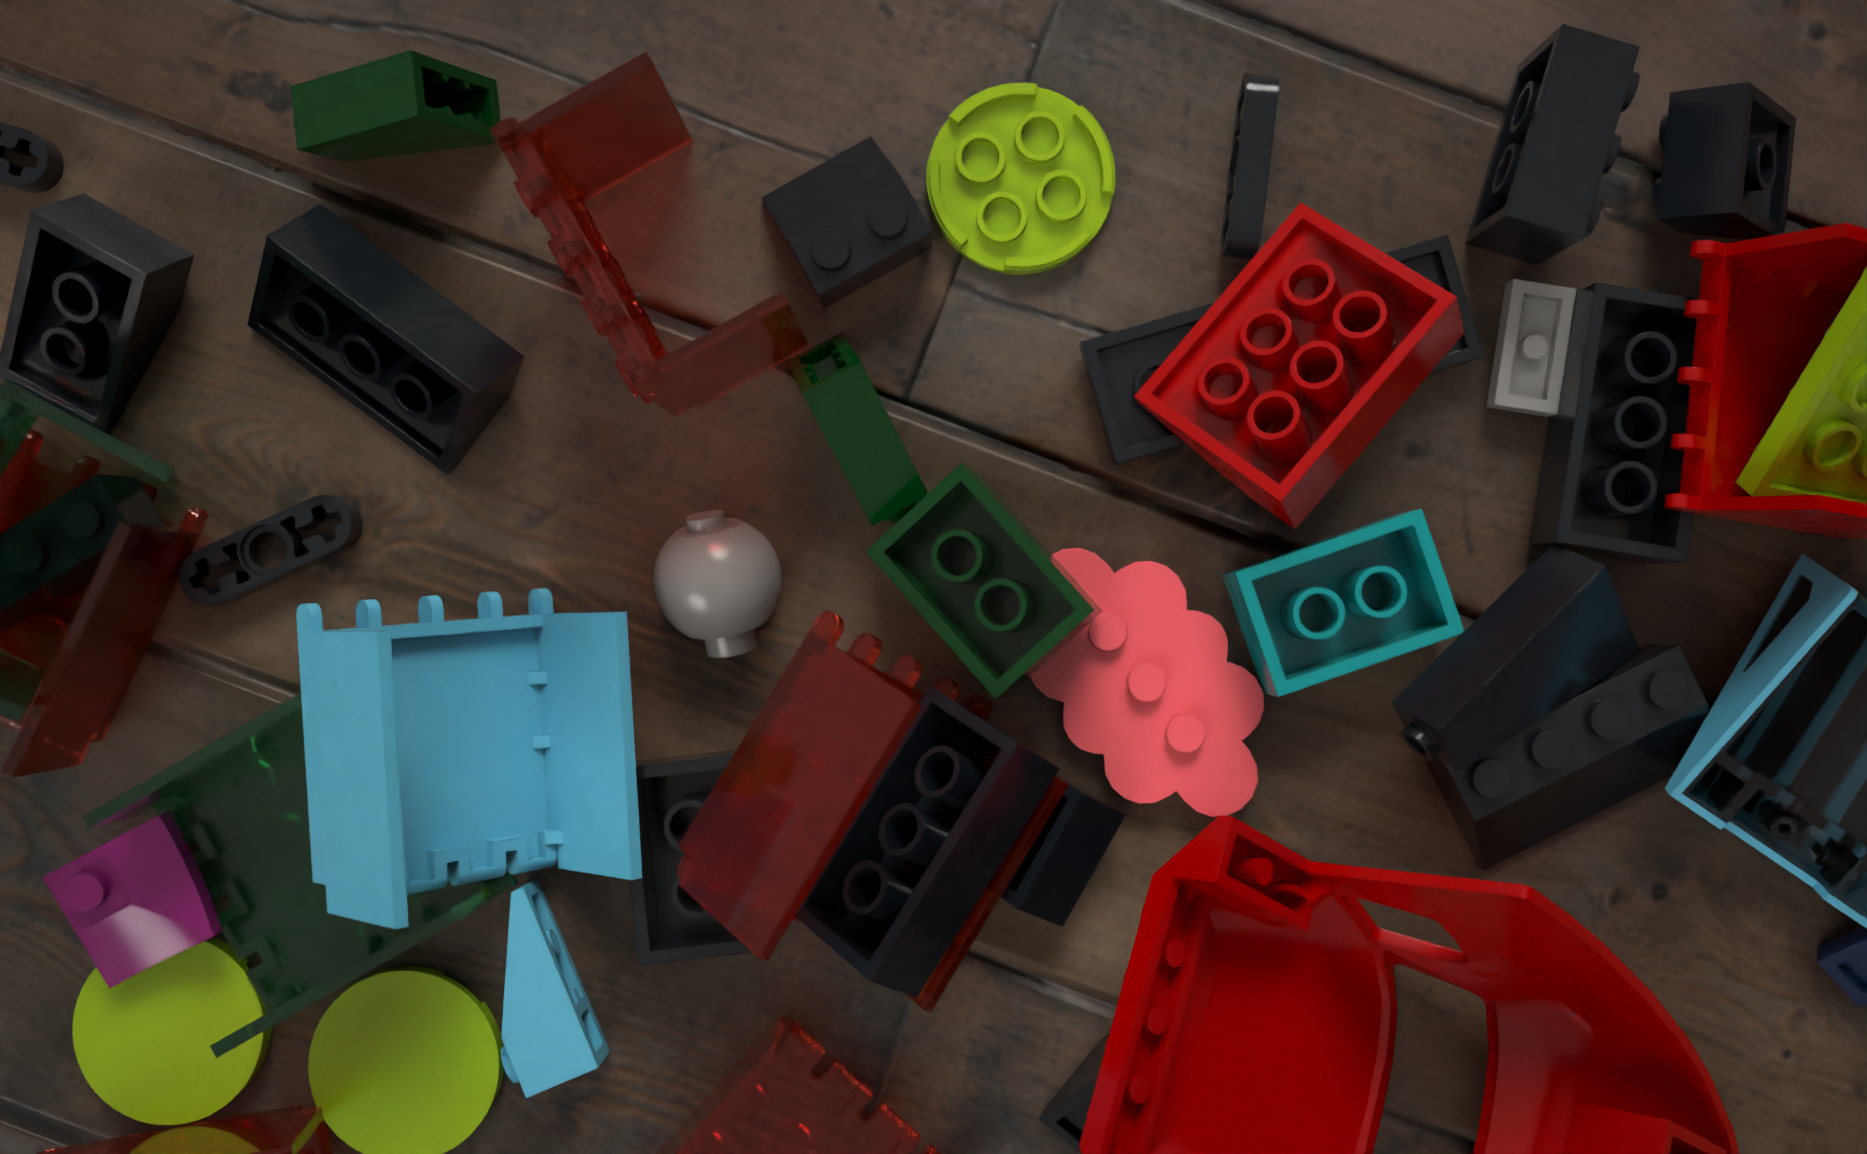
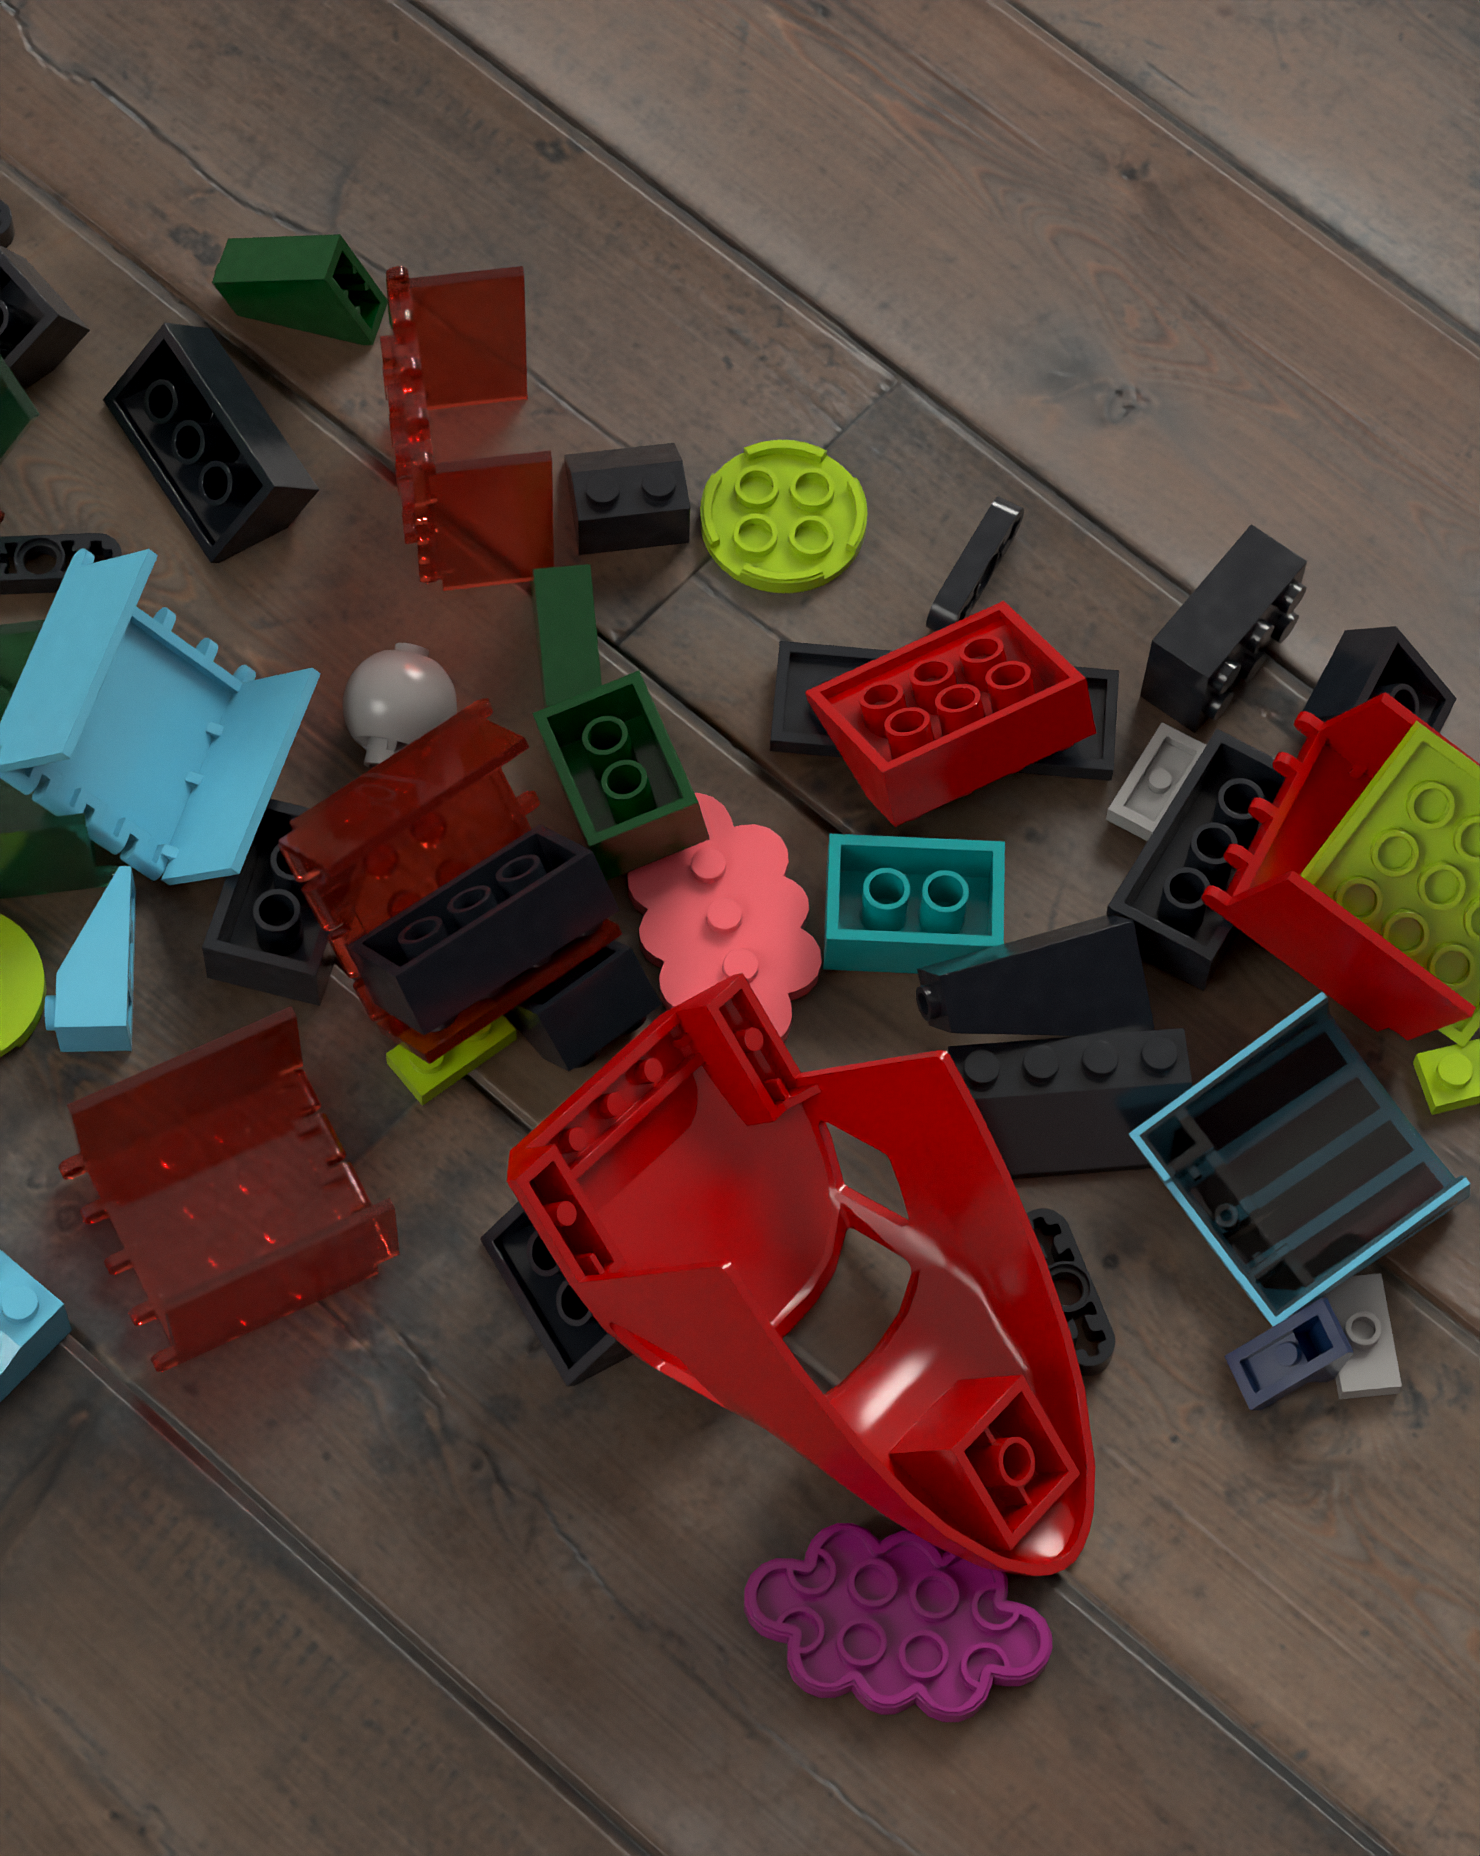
camera: 15 degrees right, 25 degrees down
(1616, 907) = (1096, 1325): none -> black beam

